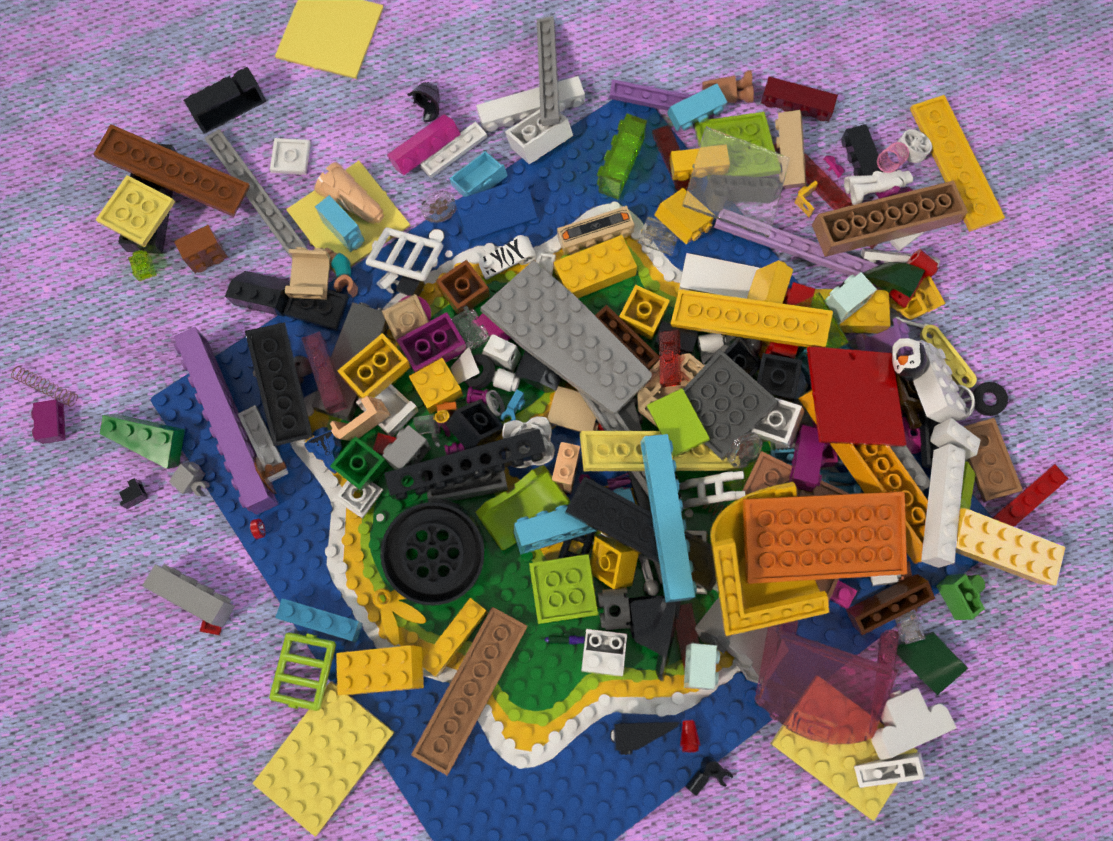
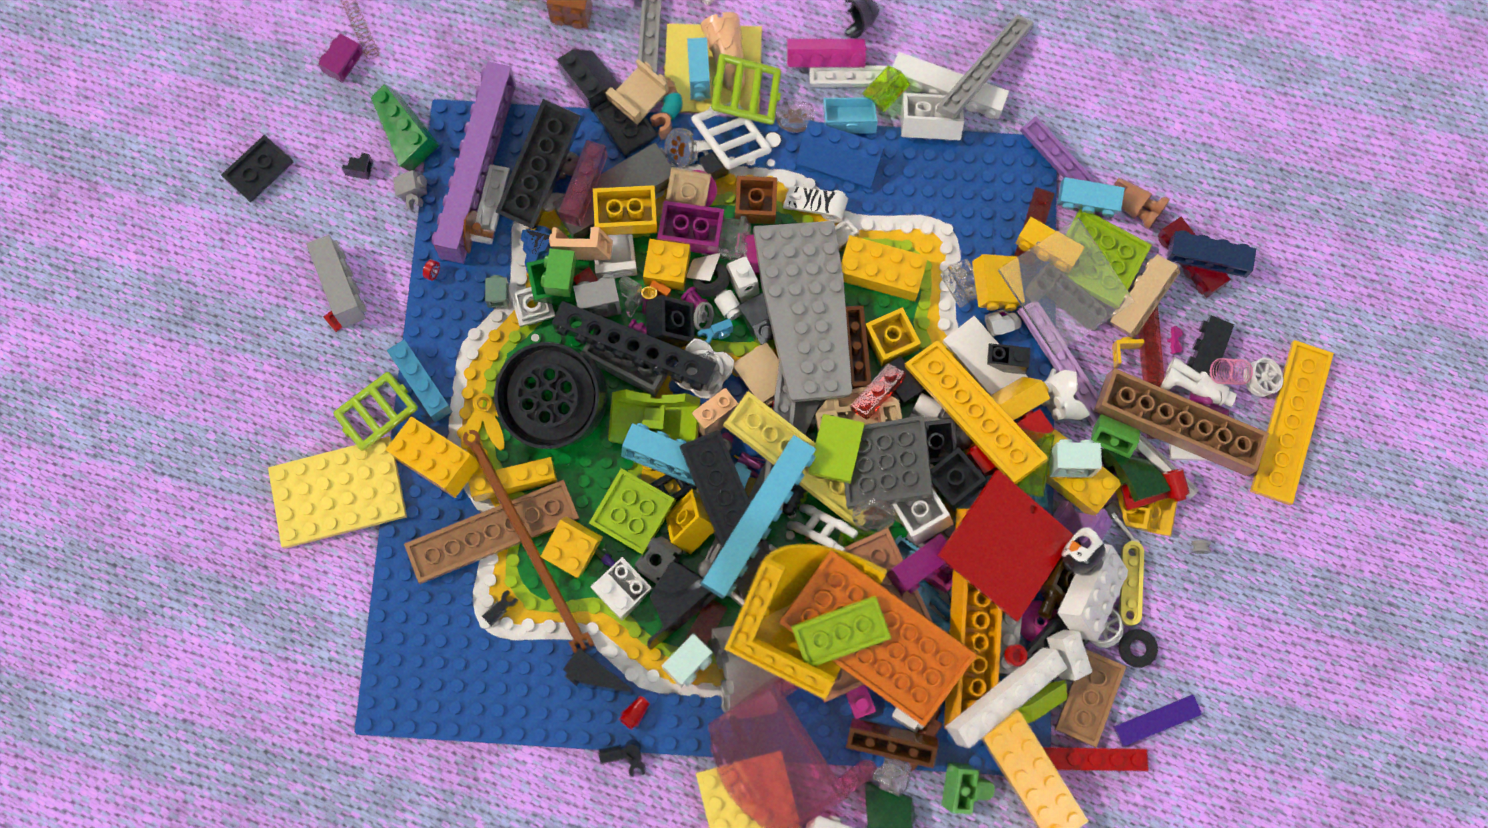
camera: 35 degrees right, 0 degrees up
(50, 558) = (257, 168): none -> black plate
(323, 505) = (496, 291): none -> sand green brick
(363, 454) = (559, 272): none -> bright green brick
(375, 291) = (680, 147): none -> clear tile
(391, 234) = (733, 109): none -> lime bar
(489, 137) = (886, 88): none -> clear neon green panel
(522, 506) = (655, 418): none -> lime panel
(524, 745) = (498, 609): none -> black bar
(541, 652) = (571, 546): none -> yellow brick
(595, 230) = (910, 236): tan brick -> none
(600, 715) = (527, 542): none -> dark orange hinge
(622, 156) = (986, 189): clear neon green brick -> none
(710, 243) = (1002, 322): none -> light grey rock
(739, 263) = (1009, 358): none -> black slope
(796, 256) = (1061, 393): none -> white brick
(798, 553) = (841, 631): none -> lime tile
(812, 86) = (1211, 254): none -> dark blue brick
(856, 260) = (1115, 436): none -> bright green brick
(922, 470) = (1015, 655): none -> red tile
(971, 295) = (1201, 547): none -> light grey bush
(1044, 438) = (1157, 720): none -> dark purple tile

